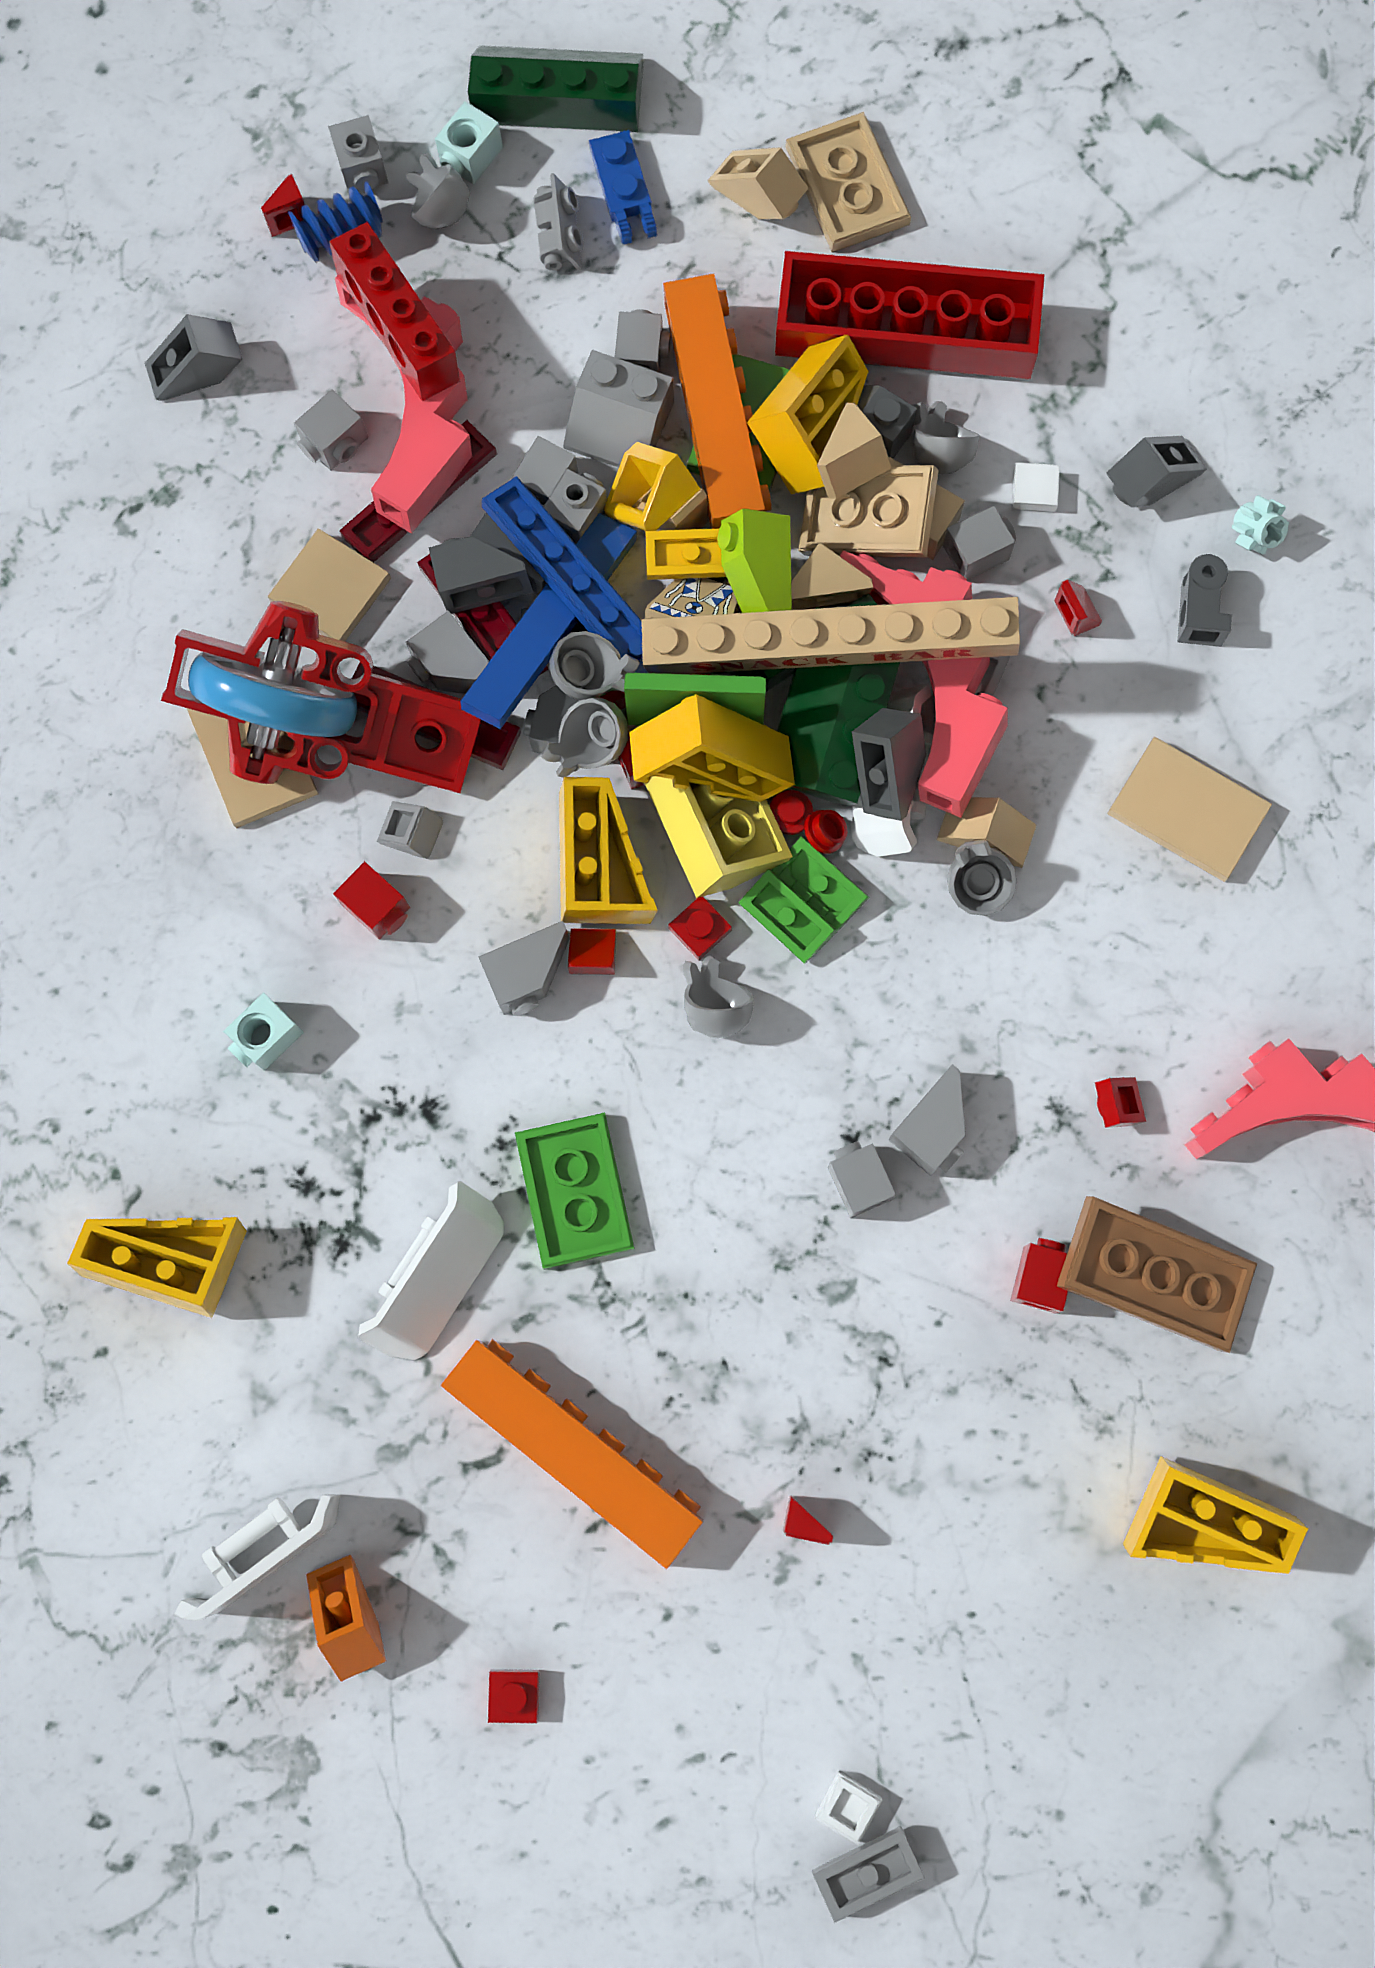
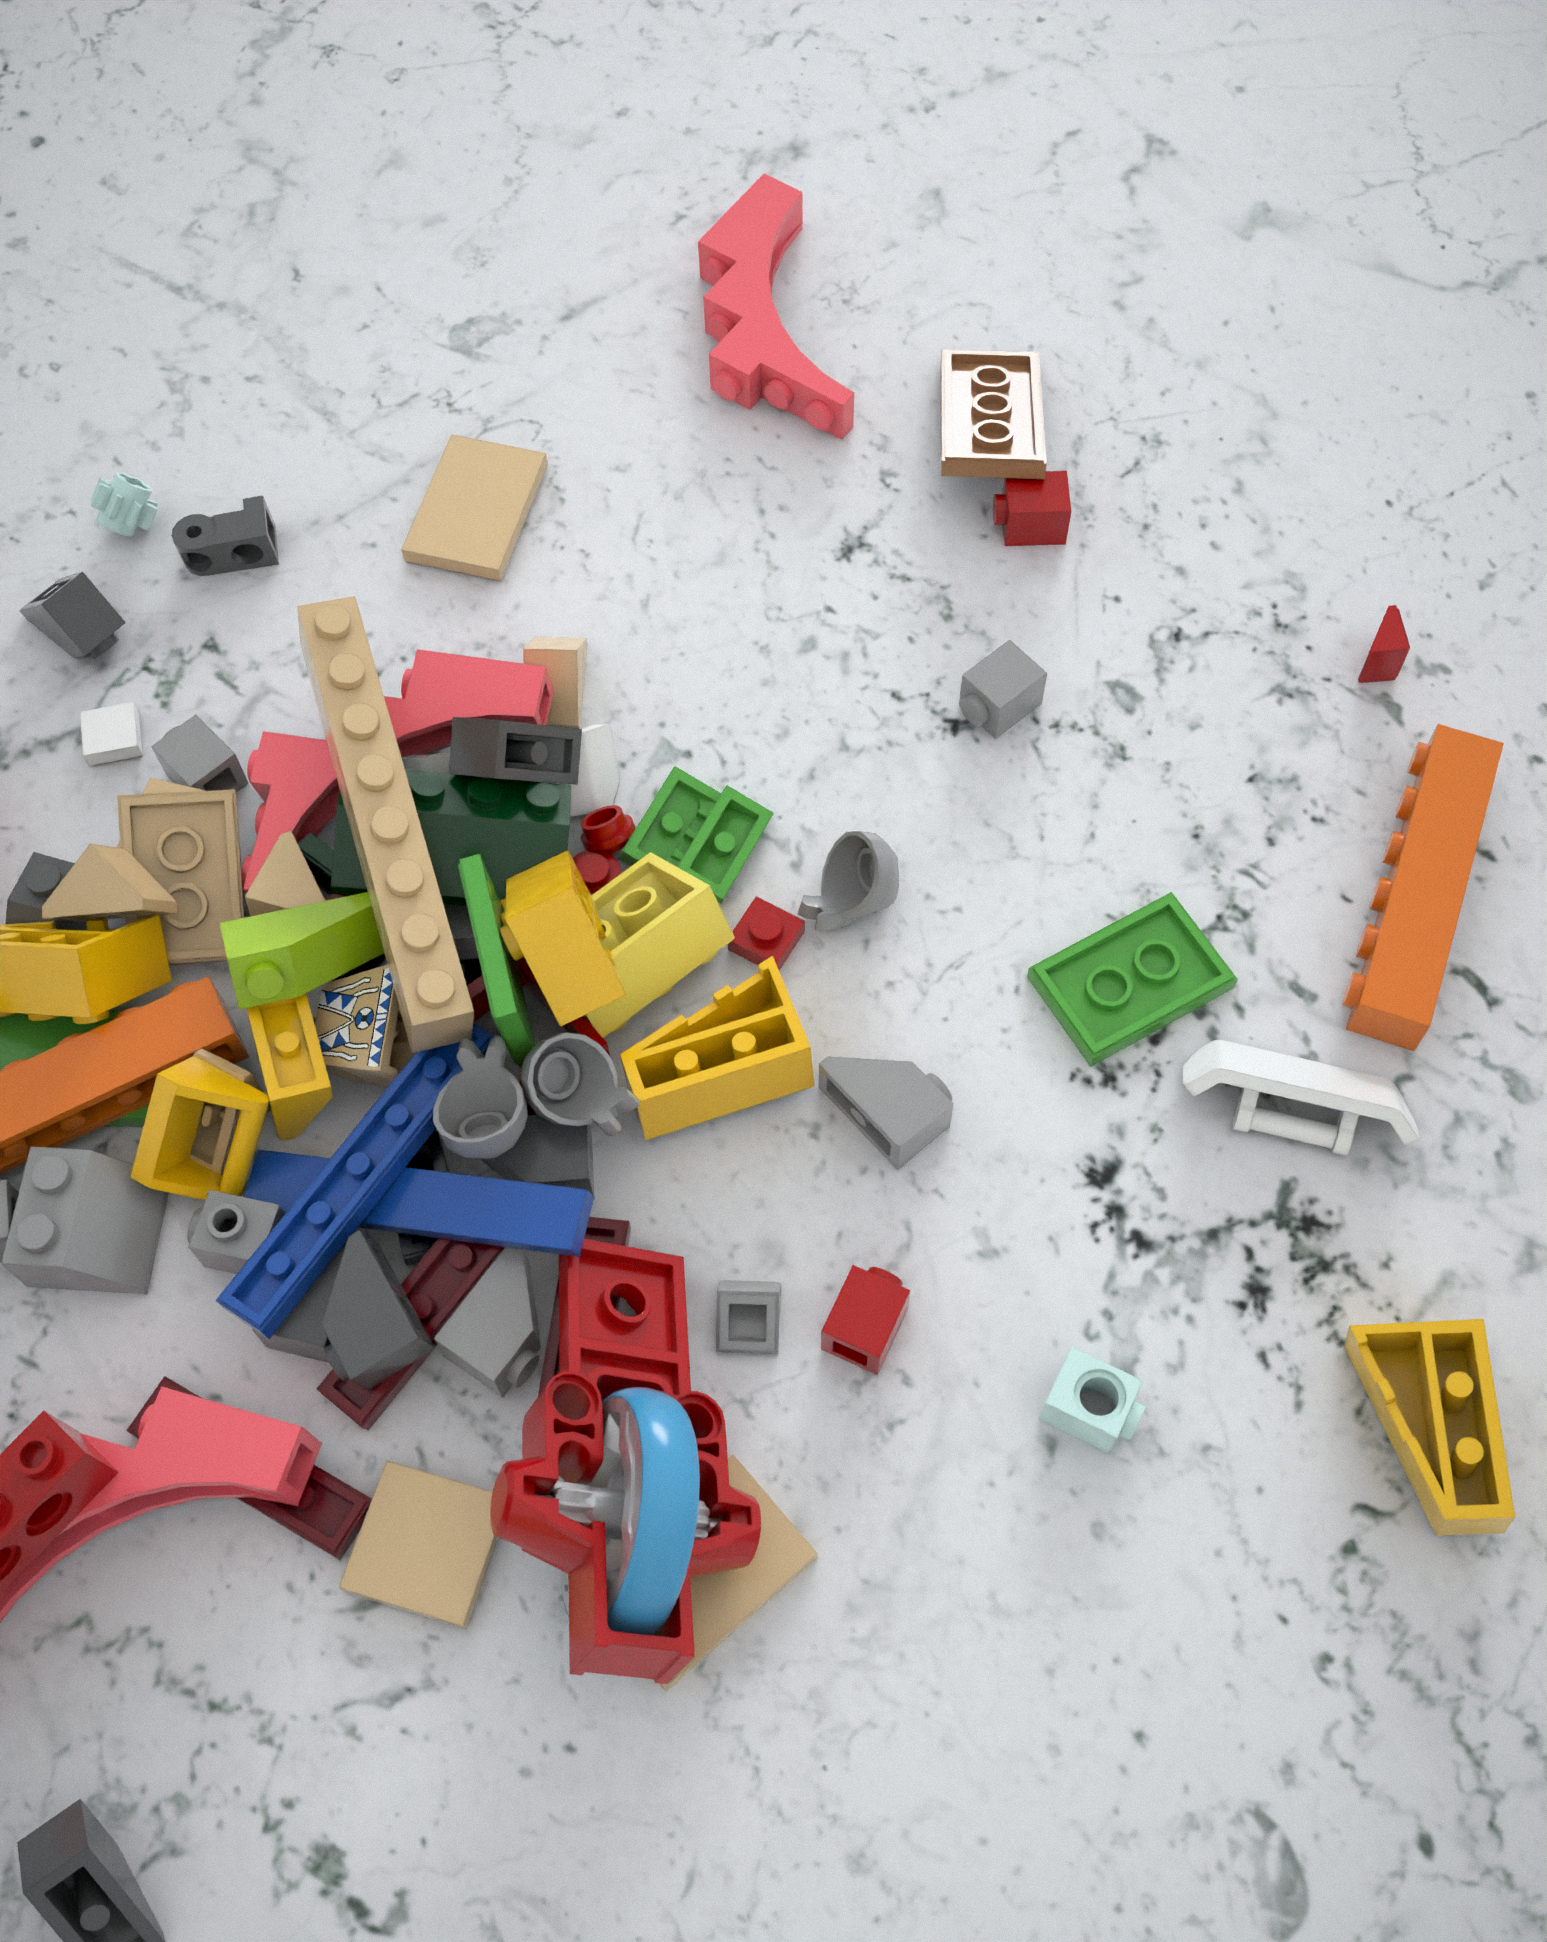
camera: 110 degrees left, 15 degrees down
(330, 431) = (180, 1617): light grey brick -> none
(544, 468) = (187, 1288): light grey brick -> none
(592, 951) = (838, 1034): red slope -> none
(934, 1126) = (909, 638): light grey slope -> none
(942, 442) = (72, 823): light grey piece -> none
(981, 878) = (619, 660): light grey piece -> none
(1076, 608) = (262, 656): red slope -> none
(1119, 1102) = (824, 489): red plate -> none
(1208, 1522) = (1211, 325): yellow wedge -> none

